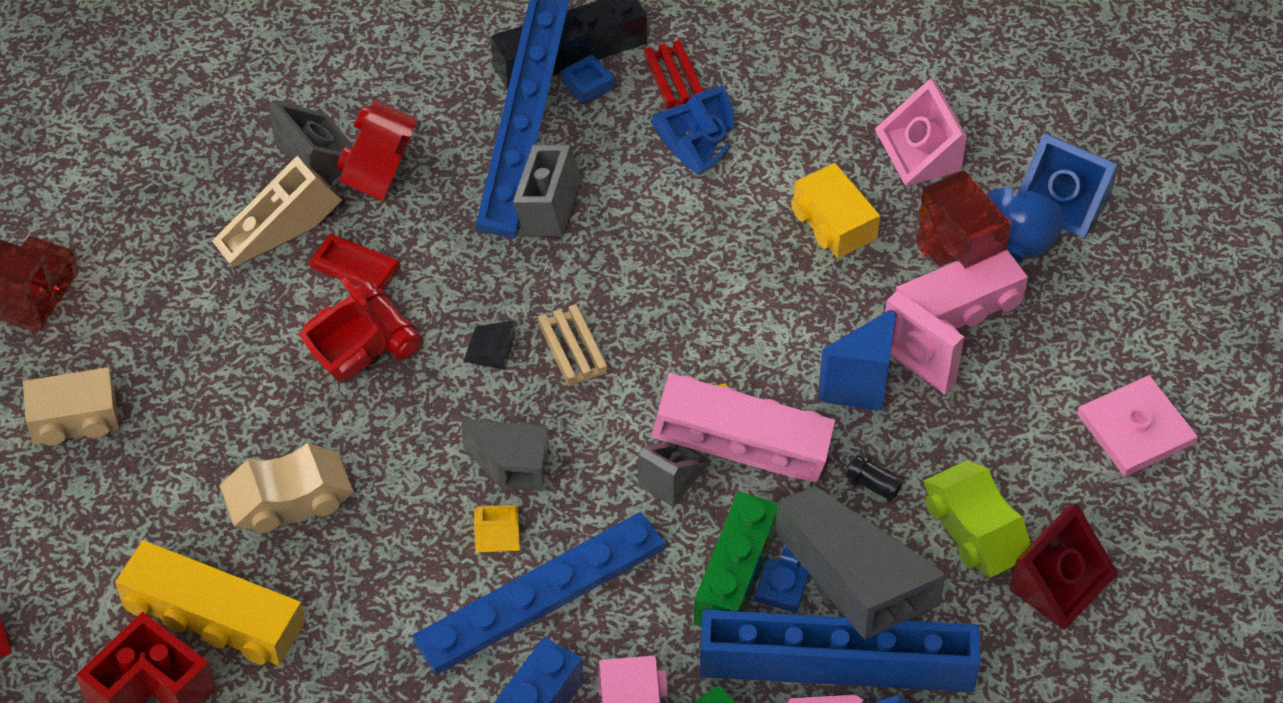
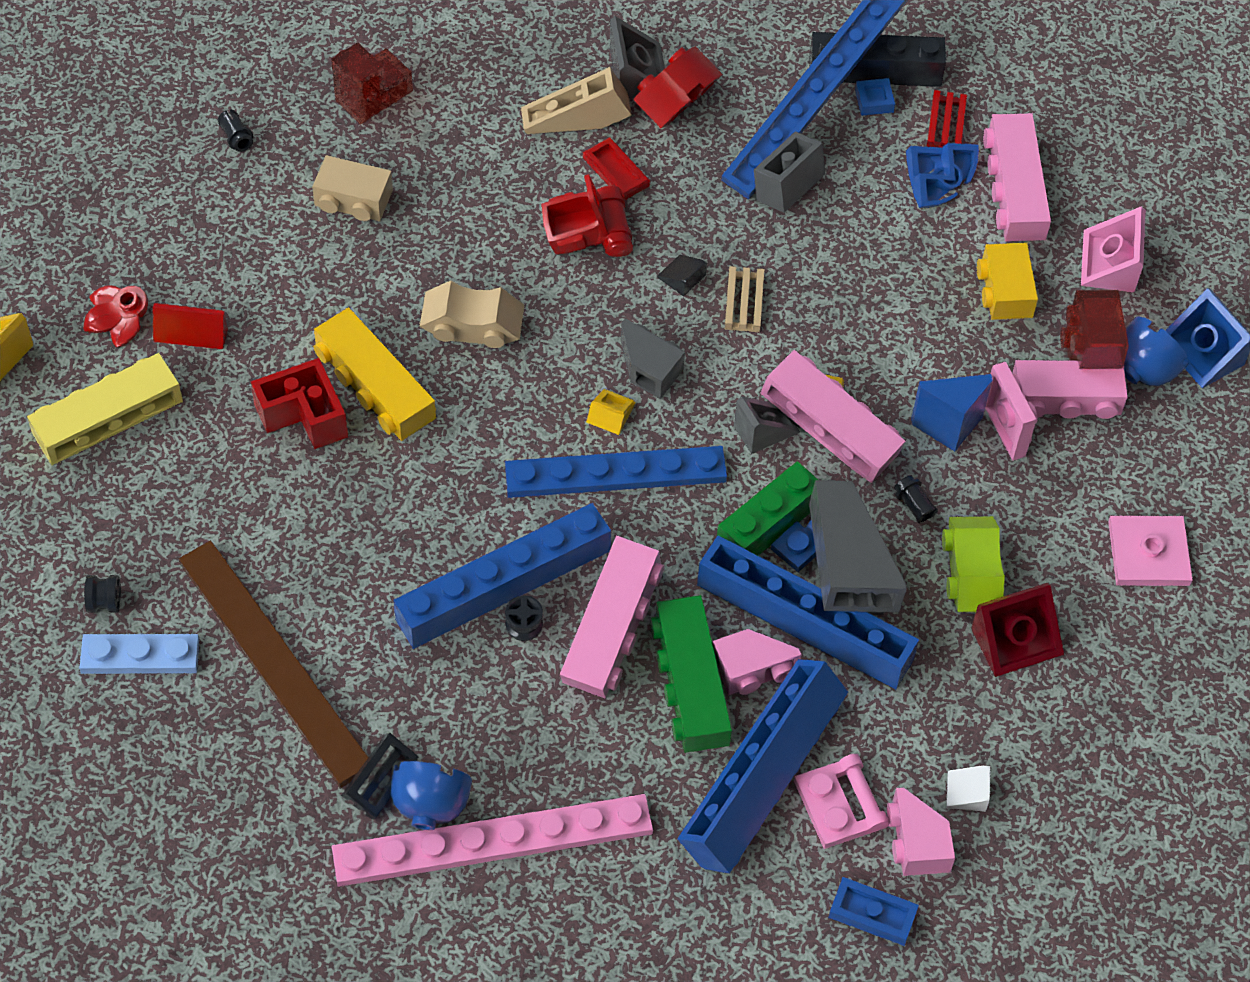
camera: 25 degrees right, 5 degrees up
(782, 102) = (1018, 177): none -> bright pink brick

